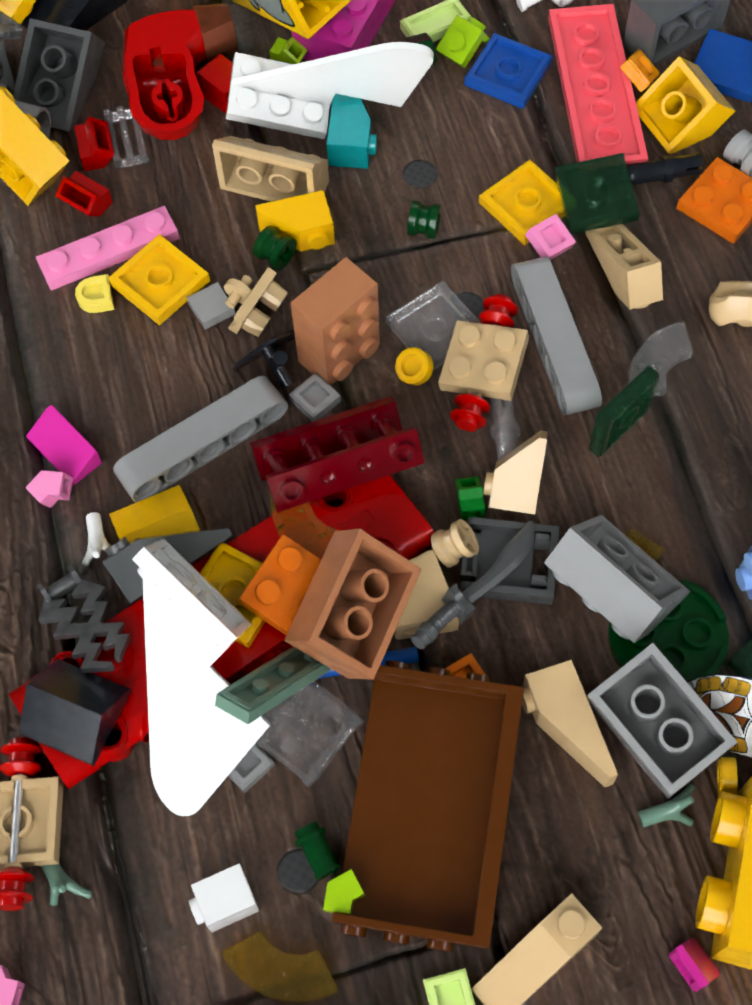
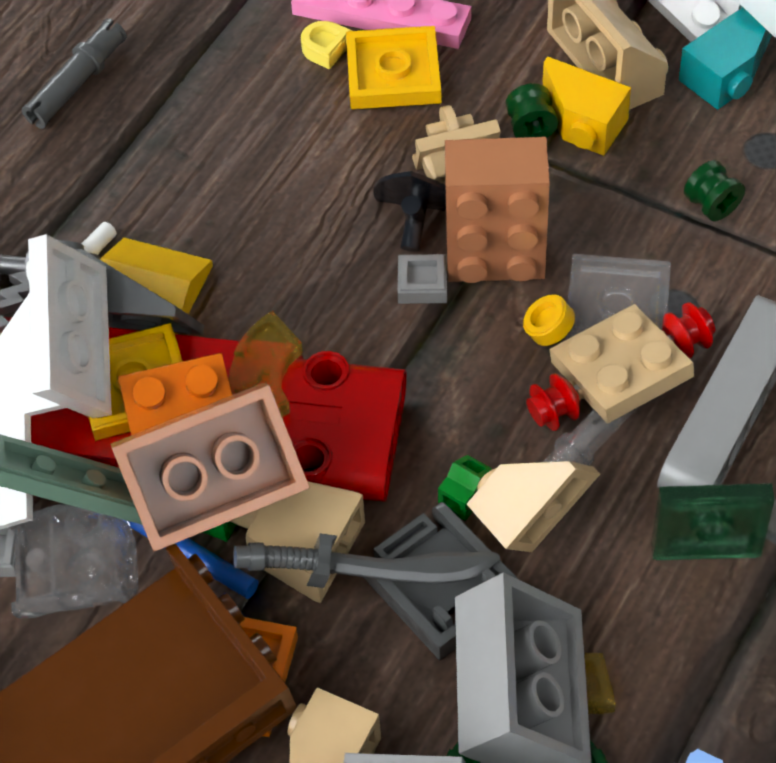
camera: 45 degrees right, 10 degrees down
(50, 487) = (97, 174): bright pink piece -> none
(63, 445) = (151, 150): dark pink slope -> none
(200, 438) = (274, 231): light grey beam -> none
(210, 306) = (411, 122): light grey tile -> none
(336, 453) = (367, 332): dark red fence -> none
(454, 543) = (392, 508): tan wheel -> none

